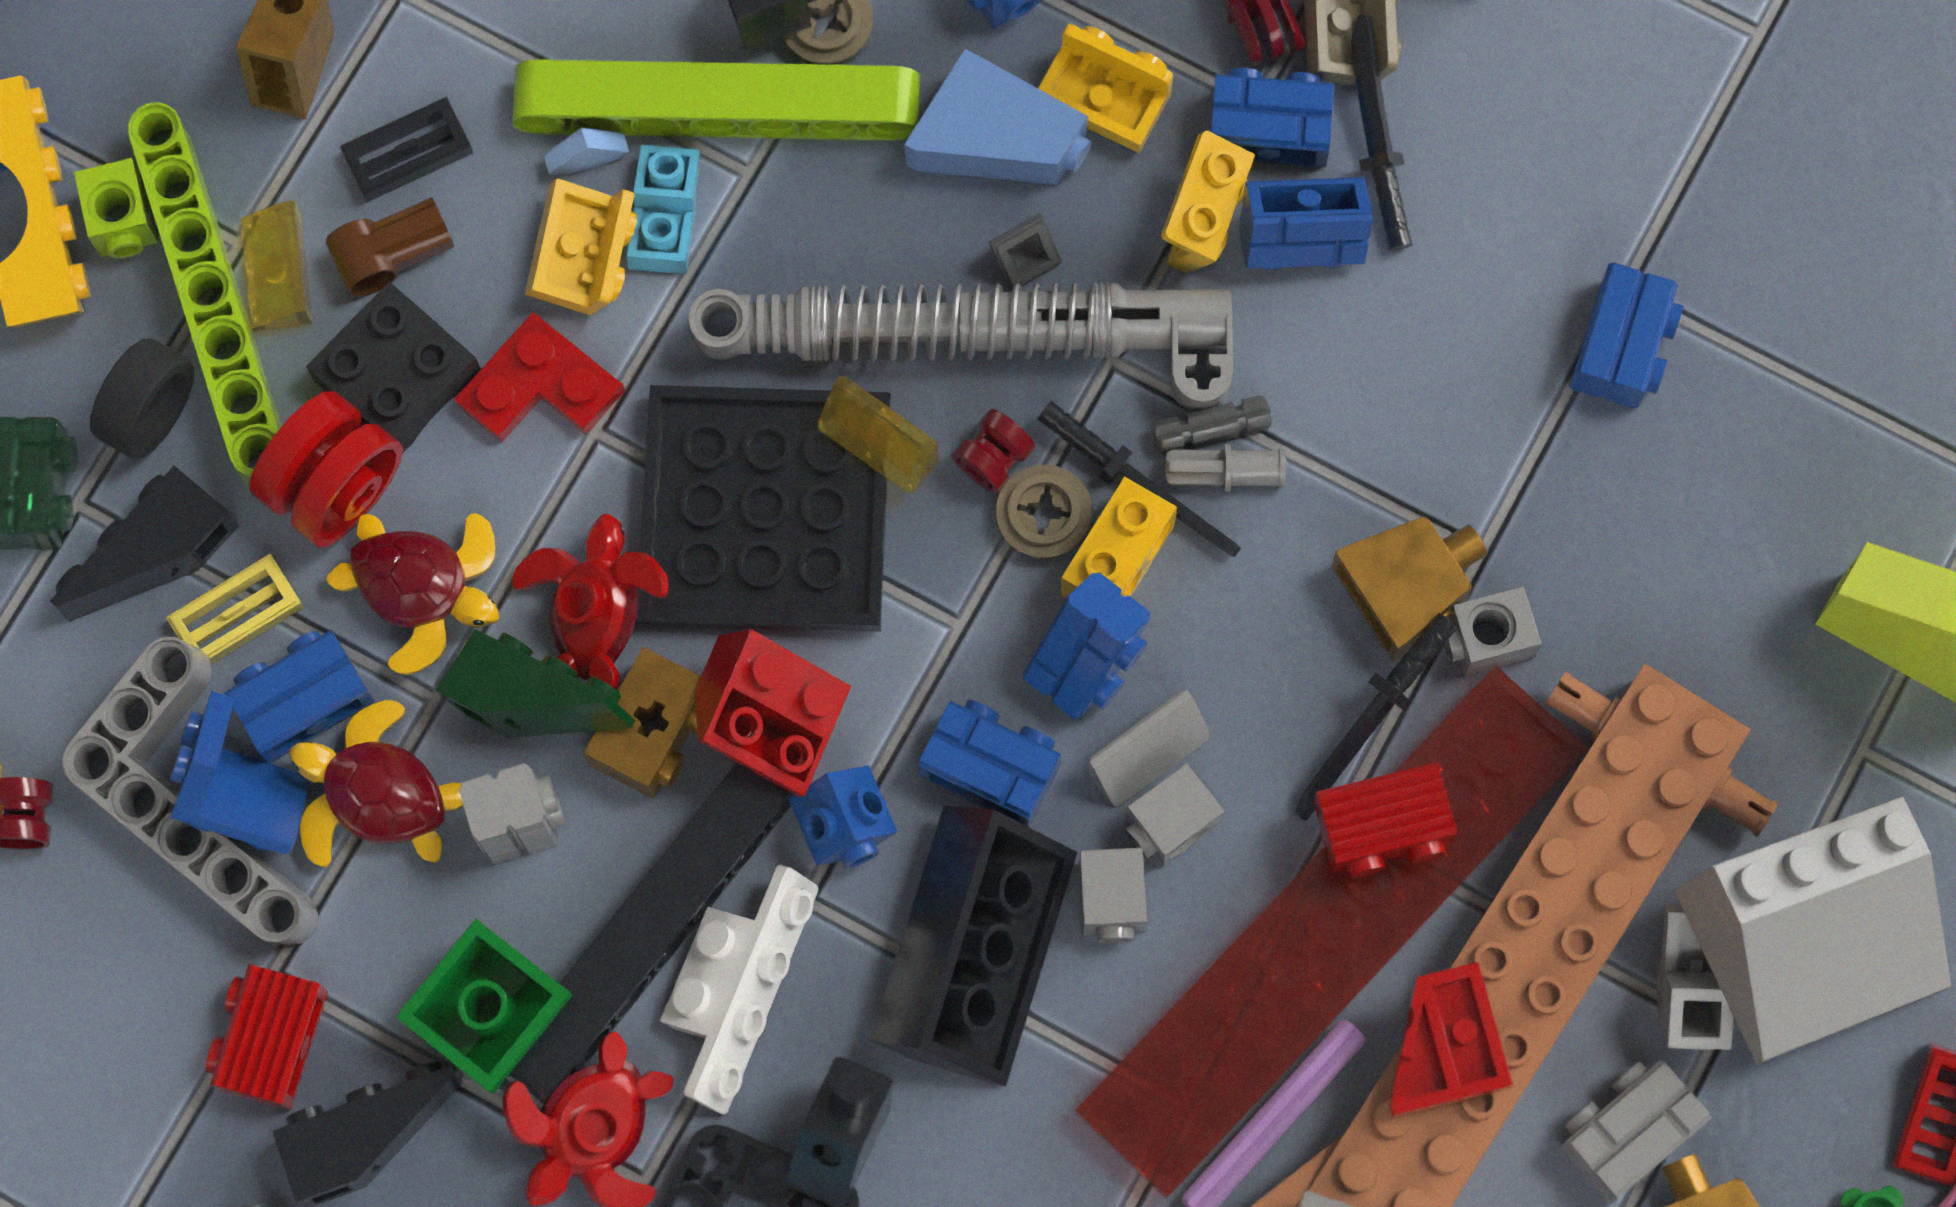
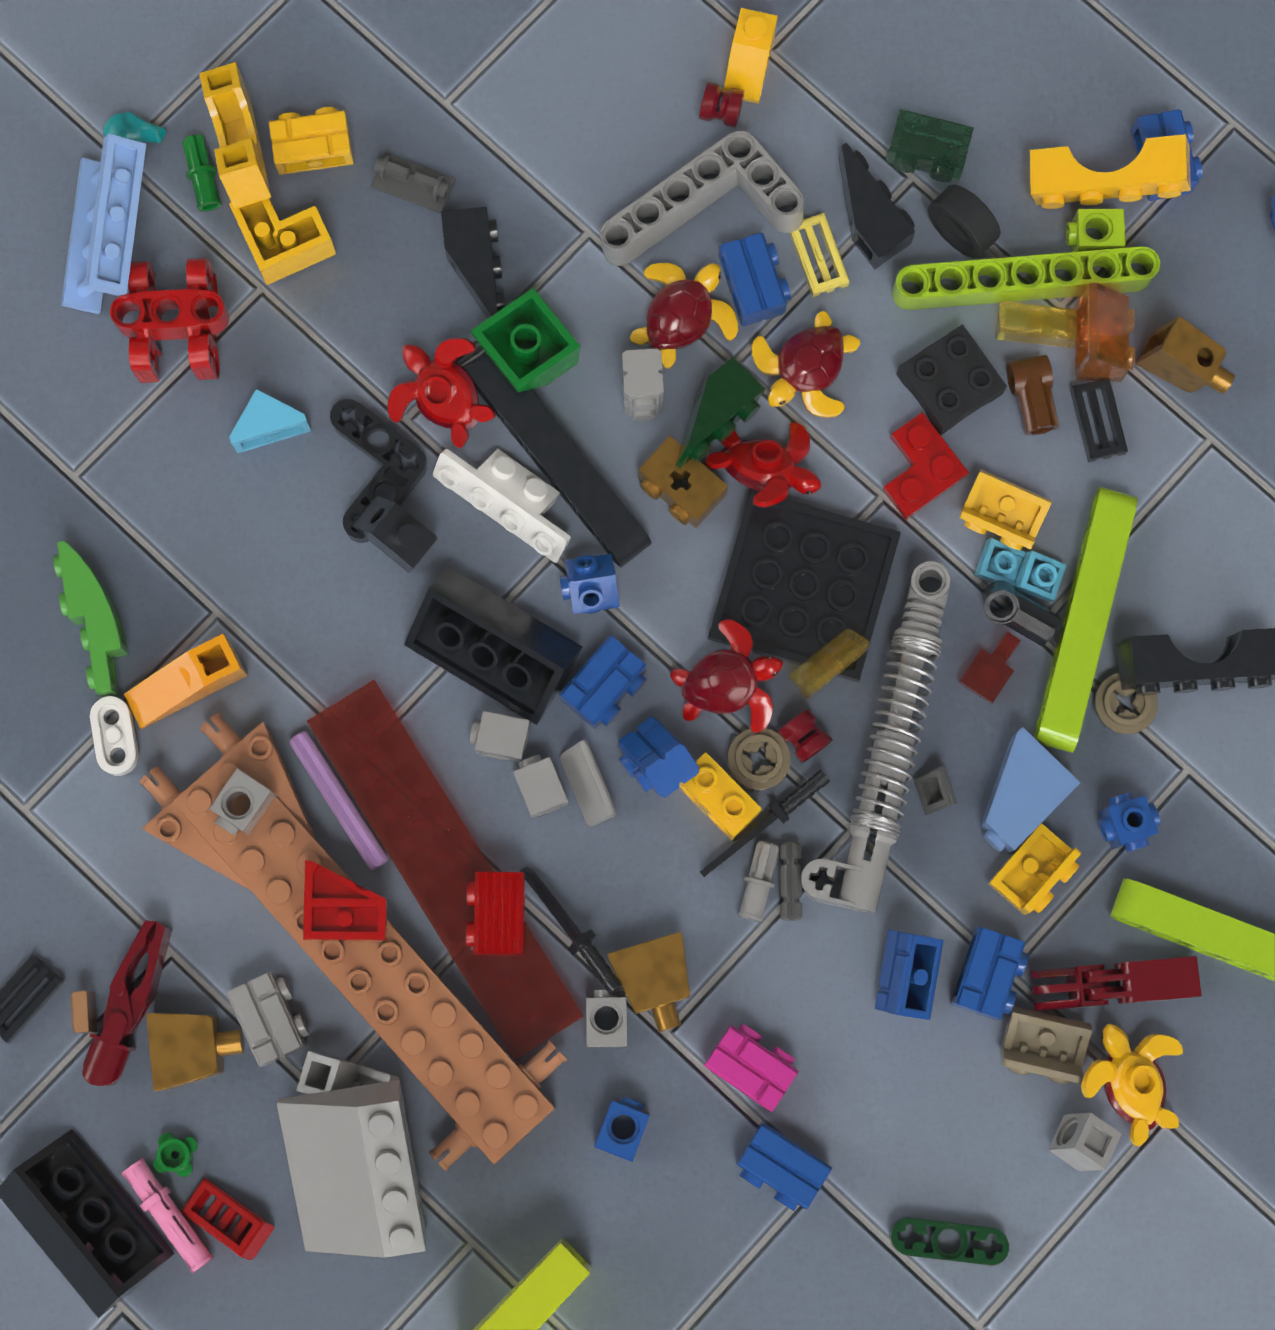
camera: 100 degrees right, 5 degrees up
(231, 790) = (699, 225): blue bracket -> none
(266, 1036) = (547, 218): red brick -> none
(279, 164) = (1103, 335): none -> clear orange slope
(325, 468) = (889, 319): red wheel -> none
(585, 151) = (1070, 530): light blue tile -> none
(732, 191) = (1022, 614): none -> black piece
(767, 708) = (664, 548): red slope -> none
(828, 220) = (988, 672): none -> clear red plate
(938, 577) = (729, 680): none -> animal
(1205, 202) = (938, 912): yellow bracket -> none
(1377, 135) = (961, 1042): black sword -> none
(1499, 412) = (751, 1067): none -> dark pink brick
(1635, 57) = (980, 1234): none -> dark green beam
(1660, 553) = (622, 1147): none -> blue brick

